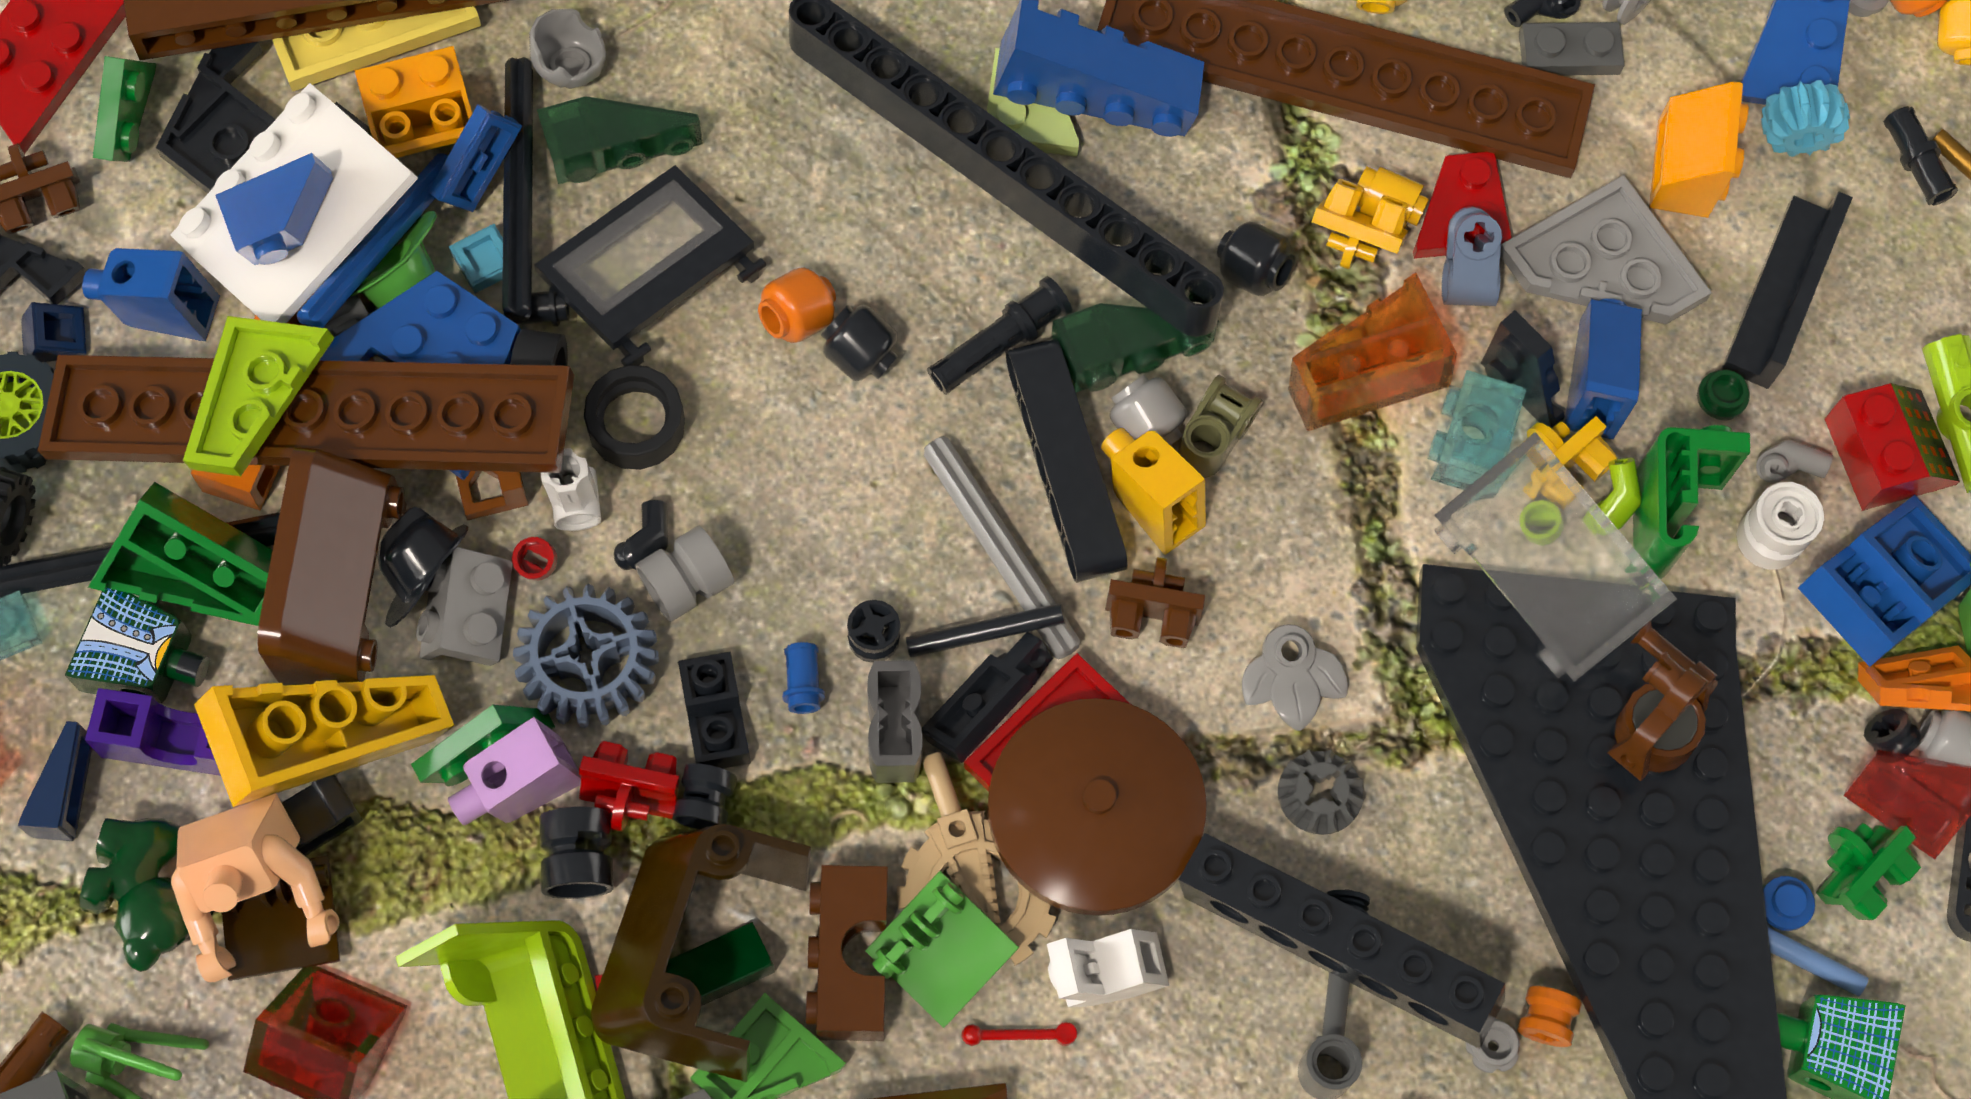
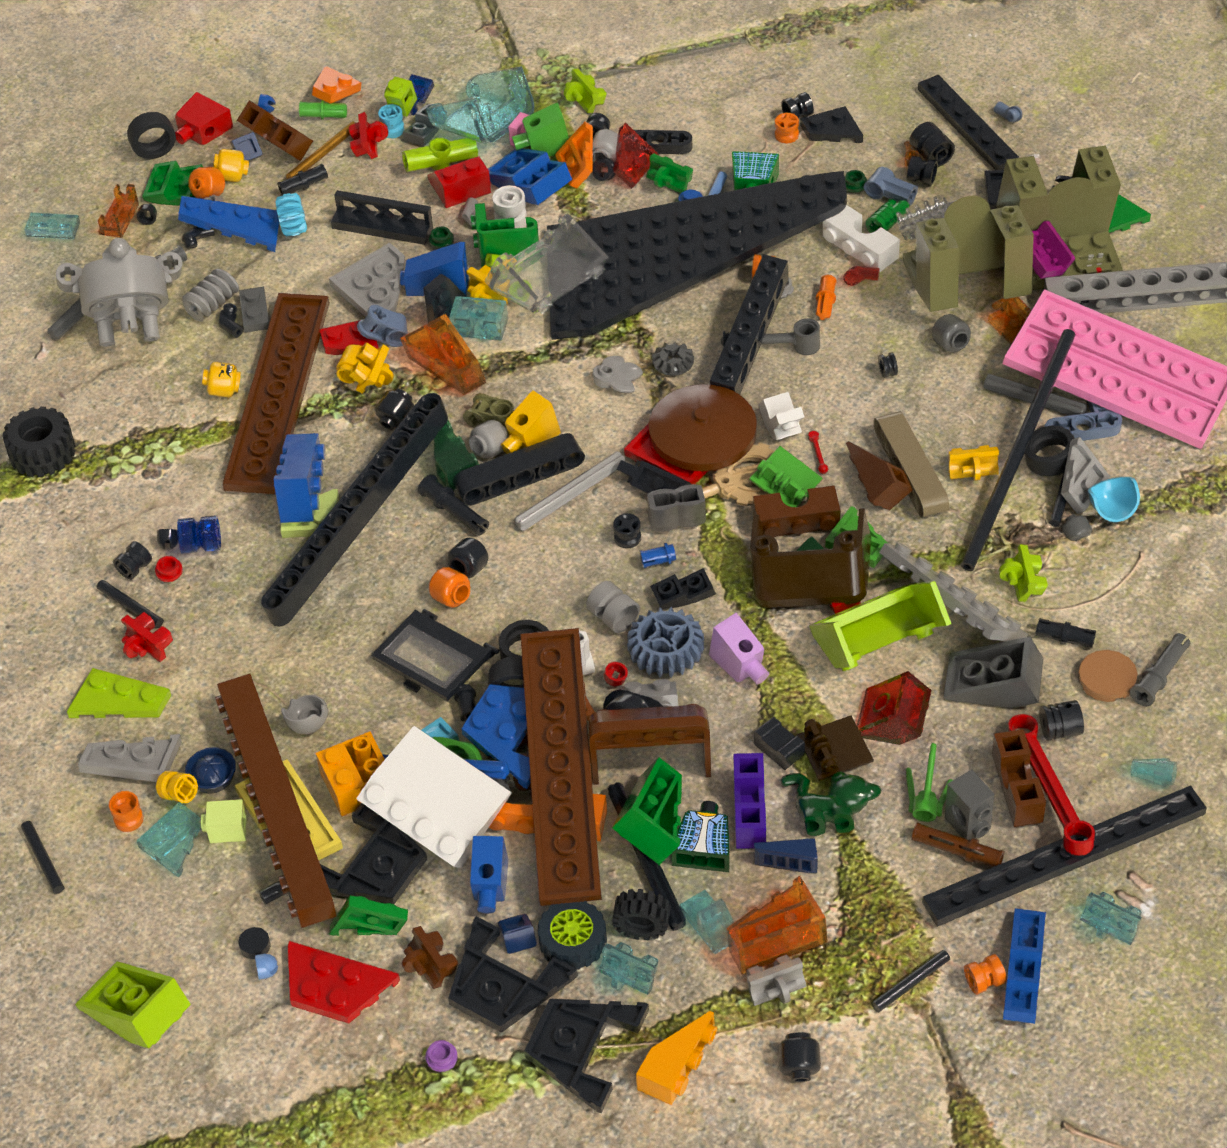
camera: 90 degrees left, 20 degrees down
(236, 859) = (818, 744): light nougat torso -> none
(249, 389) = (551, 780): lime wing -> none
(275, 209) = (446, 783): blue slope -> none
(301, 733) = (742, 722): yellow wedge -> none
(446, 760) = (727, 675): green wing -> none
(475, 158) = (379, 730): blue tile -> none
(518, 193) = (396, 719): black axle -> none
(576, 852) = (773, 623): black wheel -> none
(604, 135) = (357, 690): clear green slope -> none
(629, 789) = (732, 603): red hips -> none
(648, 539) = (595, 630): black arm -> none
(704, 796) = (724, 580): black wheel -> none
(985, 630) = (617, 482): black bar -> none
(1154, 597) = (587, 425): reddish brown hips -> none
(1667, 715) = (618, 222): reddish brown piece -> none
(1698, 149) = (313, 248): light orange slope -> none

